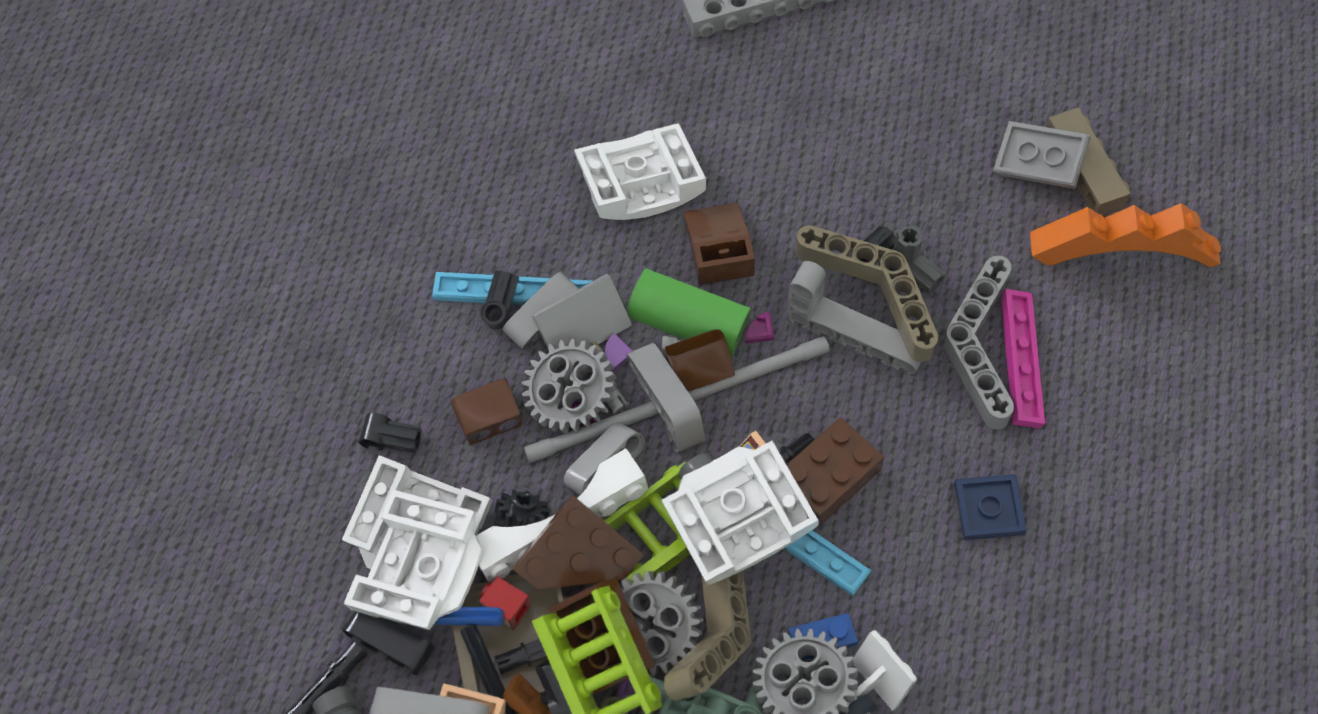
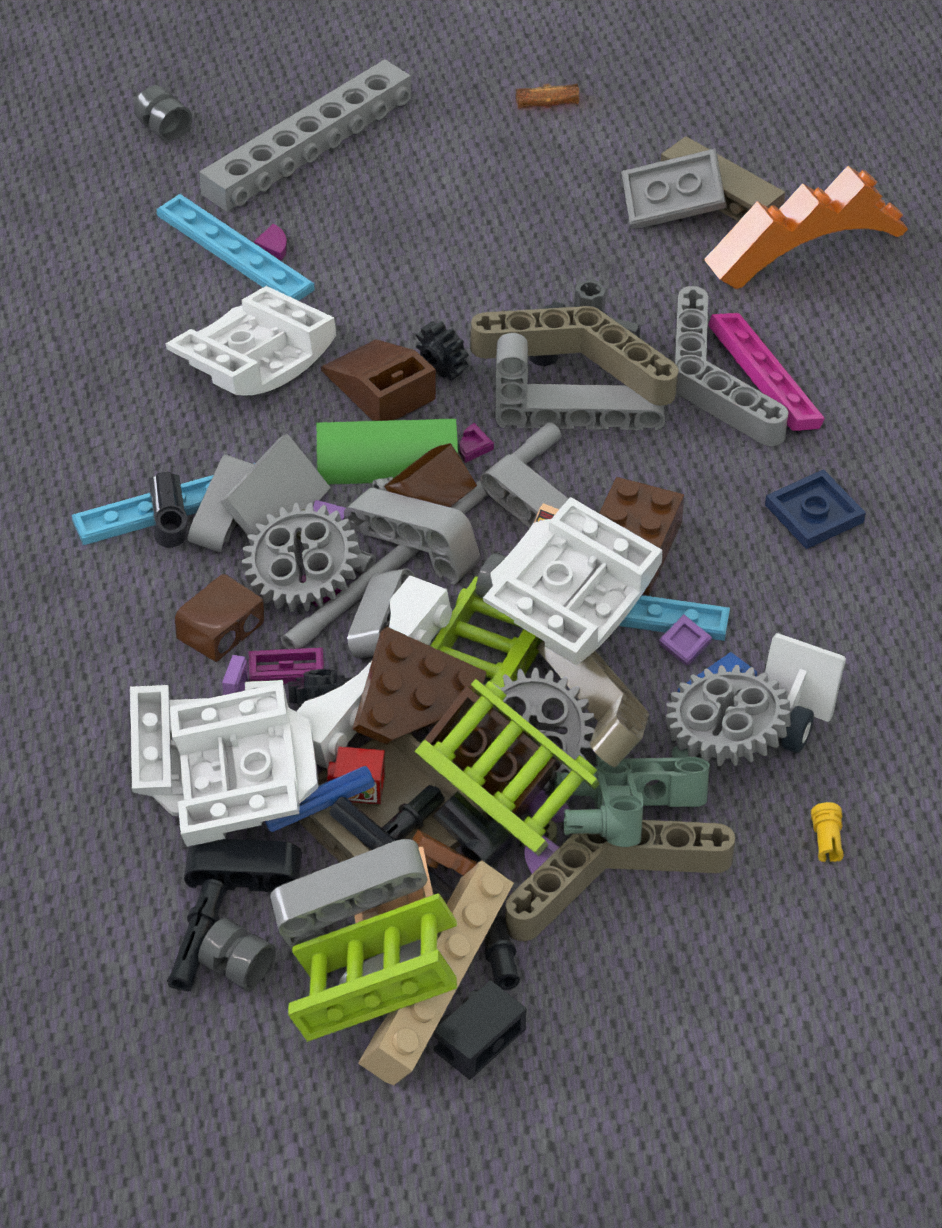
camera: 30 degrees left, 15 degrees down
(383, 432) = (108, 682): black piece -> none
(468, 472) = (235, 675): none -> medium lavender tile
(538, 483) = (286, 669): none -> magenta tile
(680, 77) = (234, 248): none -> medium azure tile
(710, 81) = (273, 241): none -> magenta tile
(770, 402) = (520, 489): none -> light grey beam
(775, 238) = (442, 349): none -> black gear
(818, 586) = (685, 640): none -> medium lavender tile
(994, 21) = (547, 95): none -> clear orange pin

